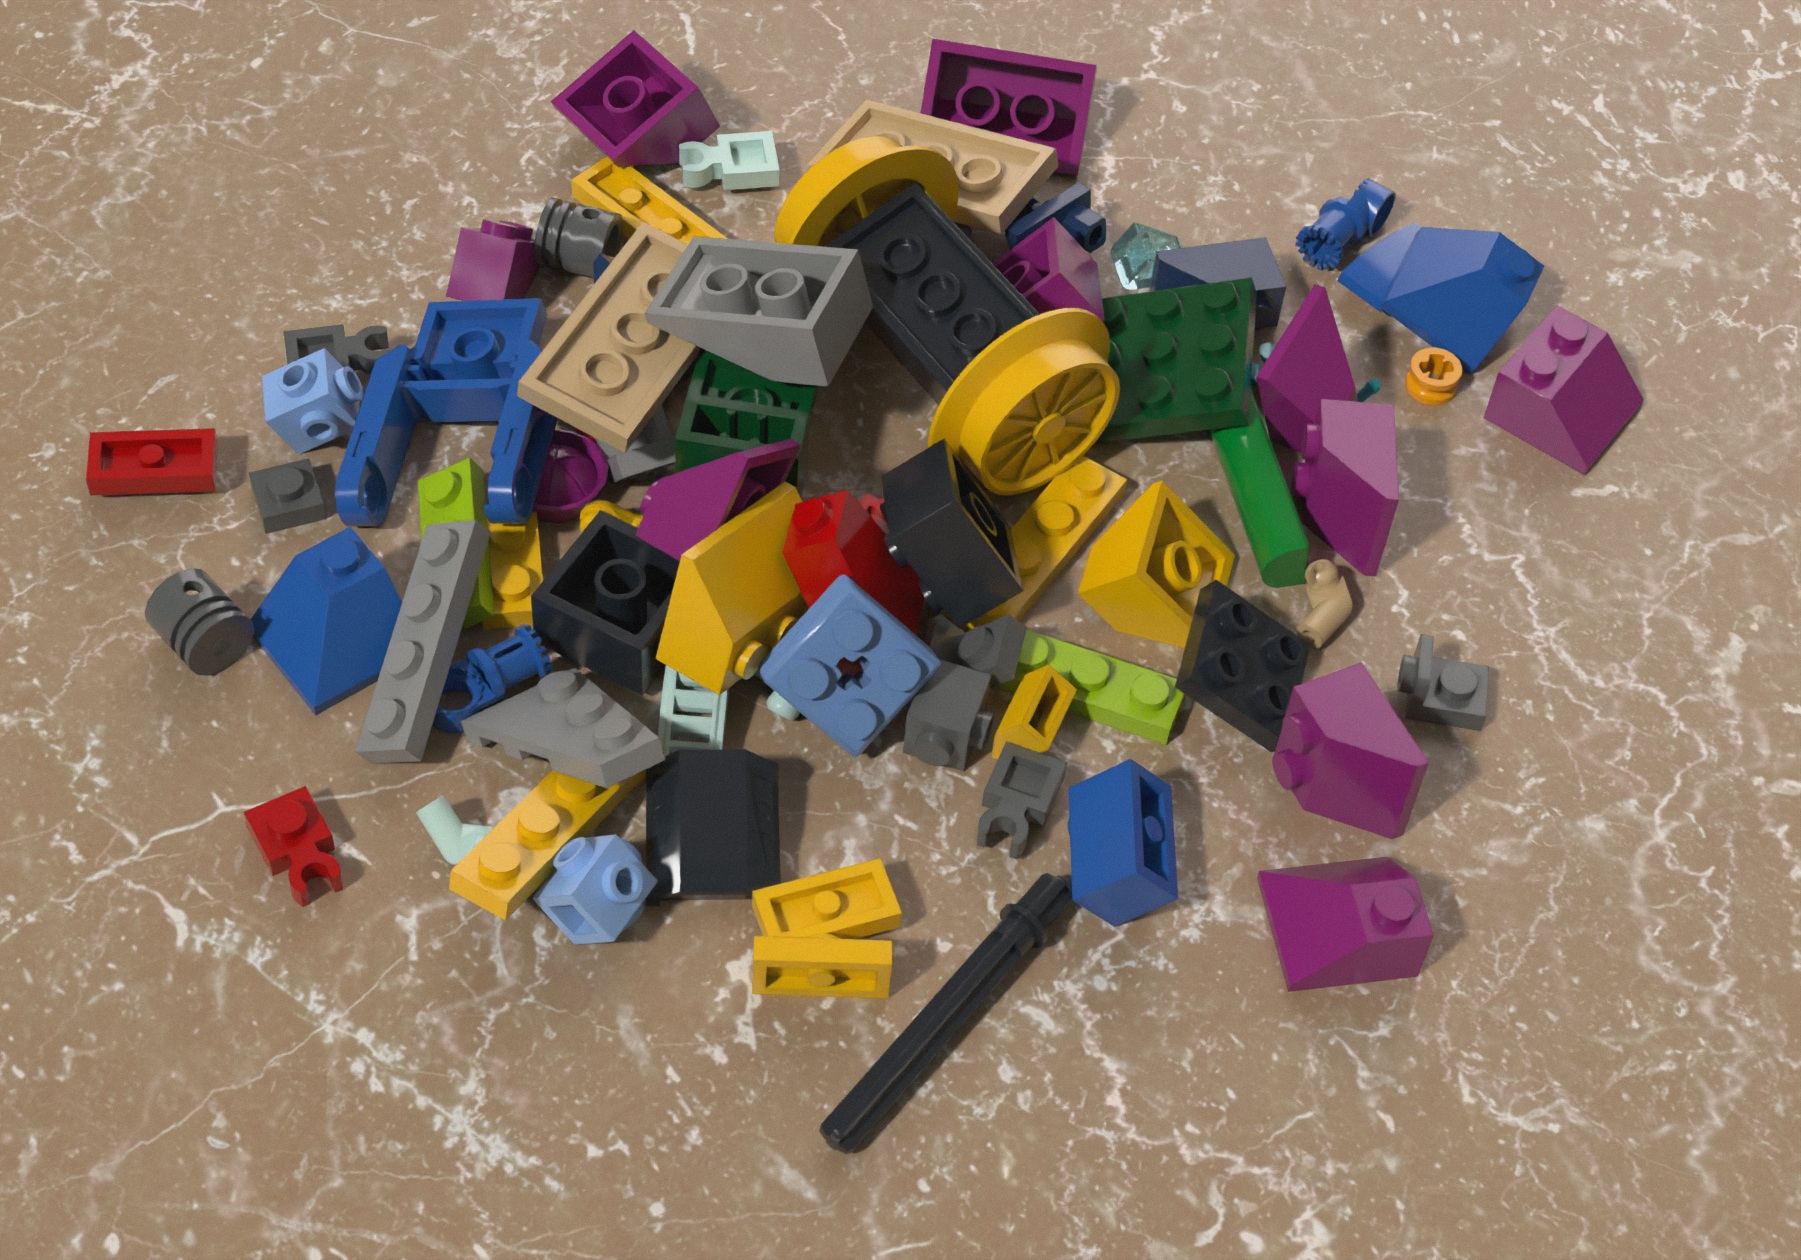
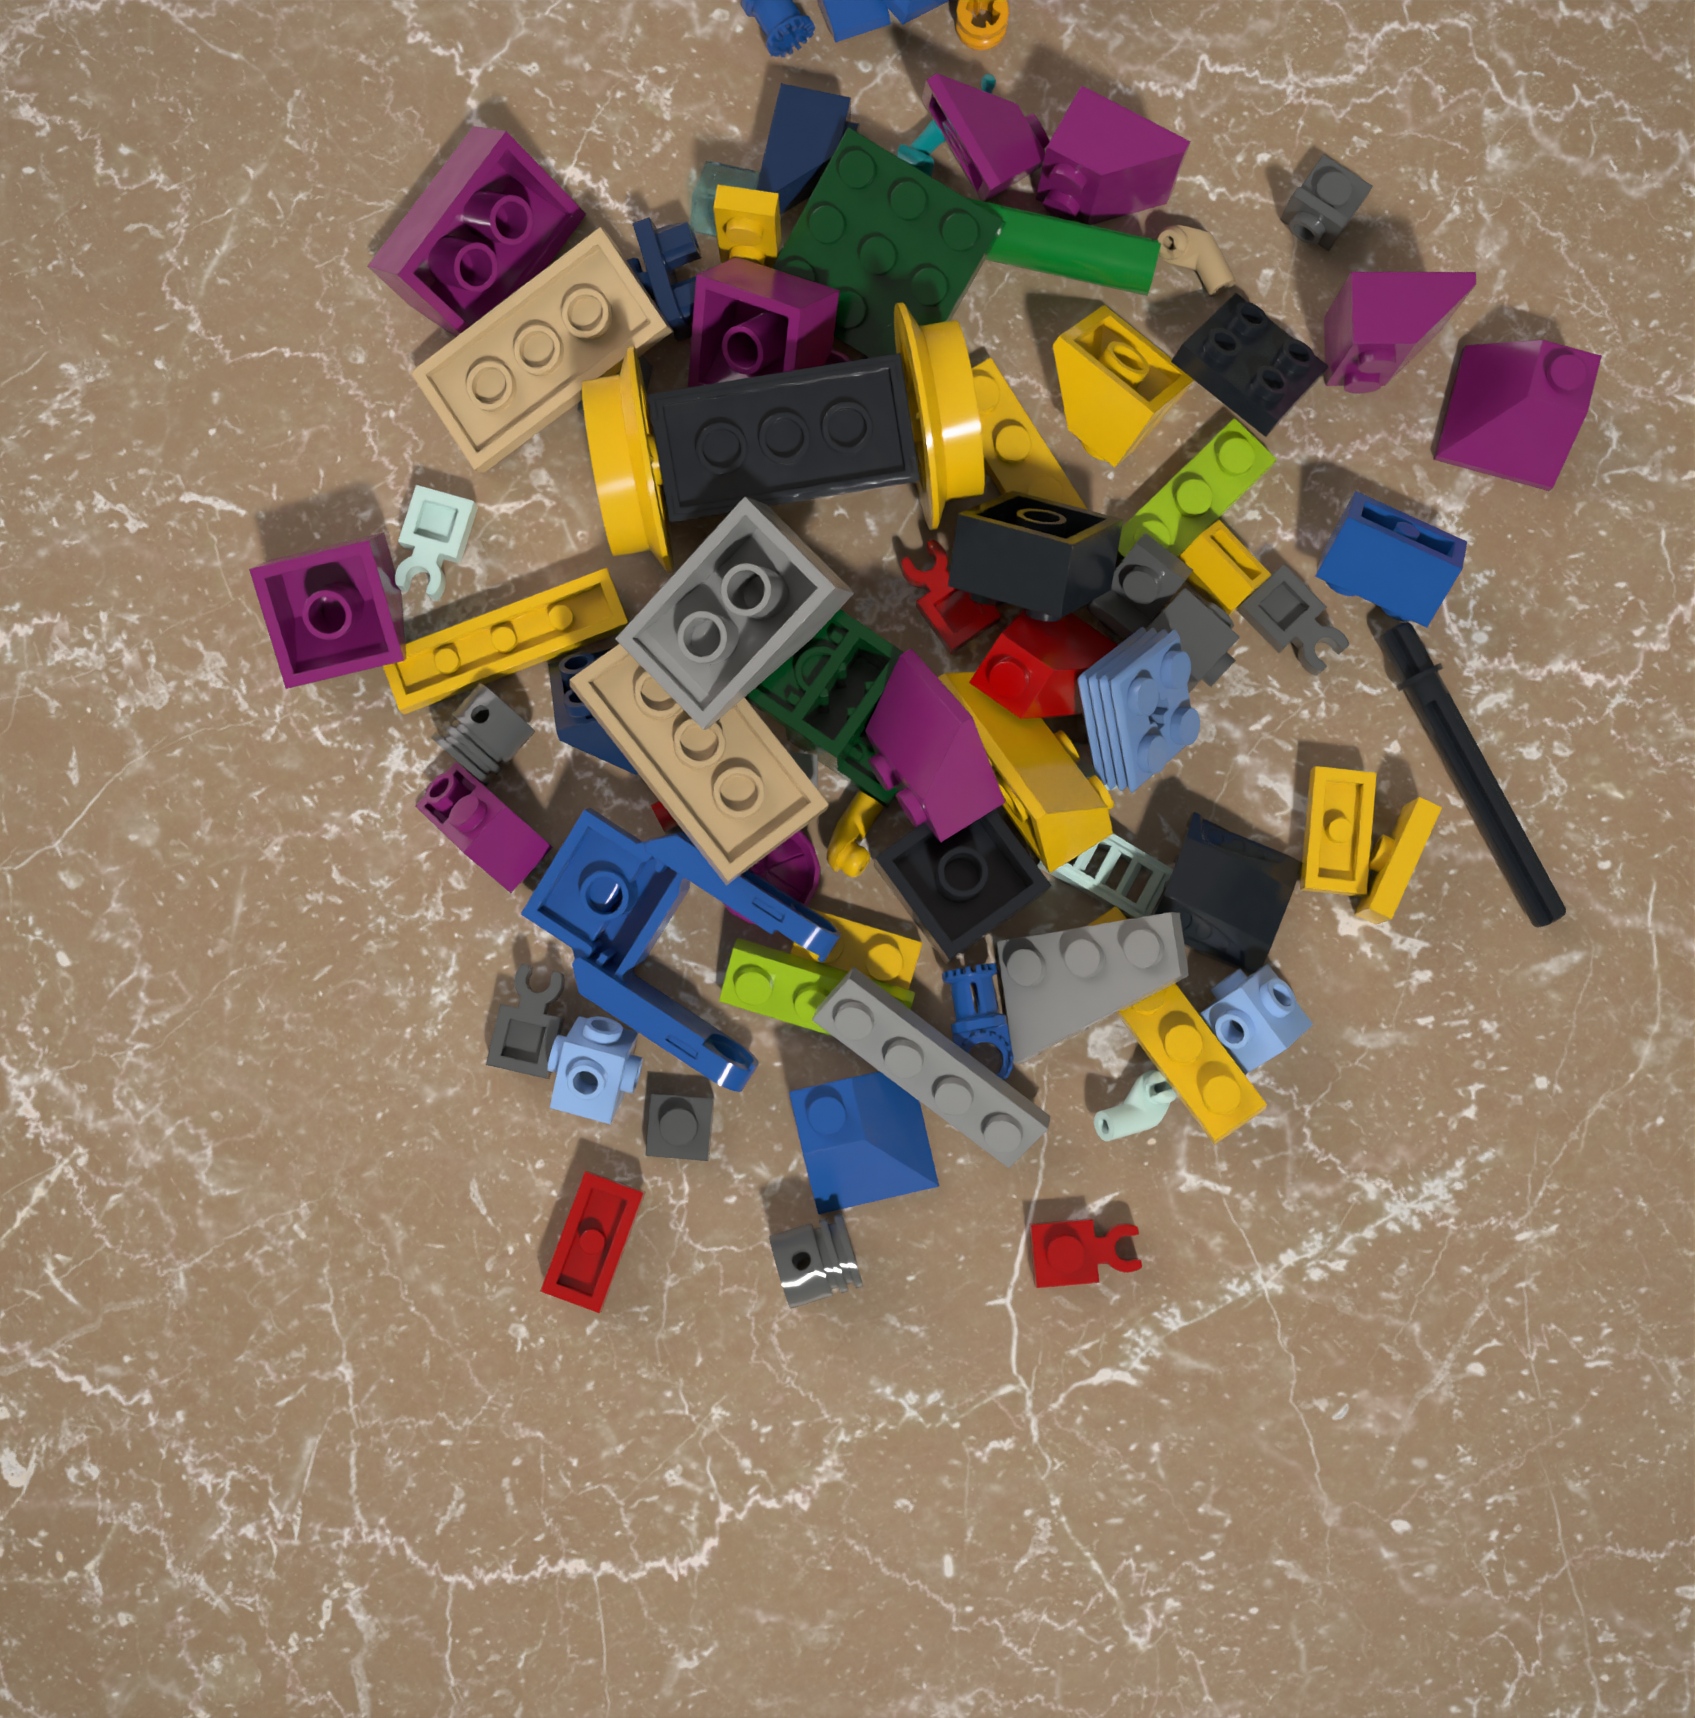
camera: 60 degrees left, 30 degrees up
(1125, 247) = (747, 224): none -> yellow plate

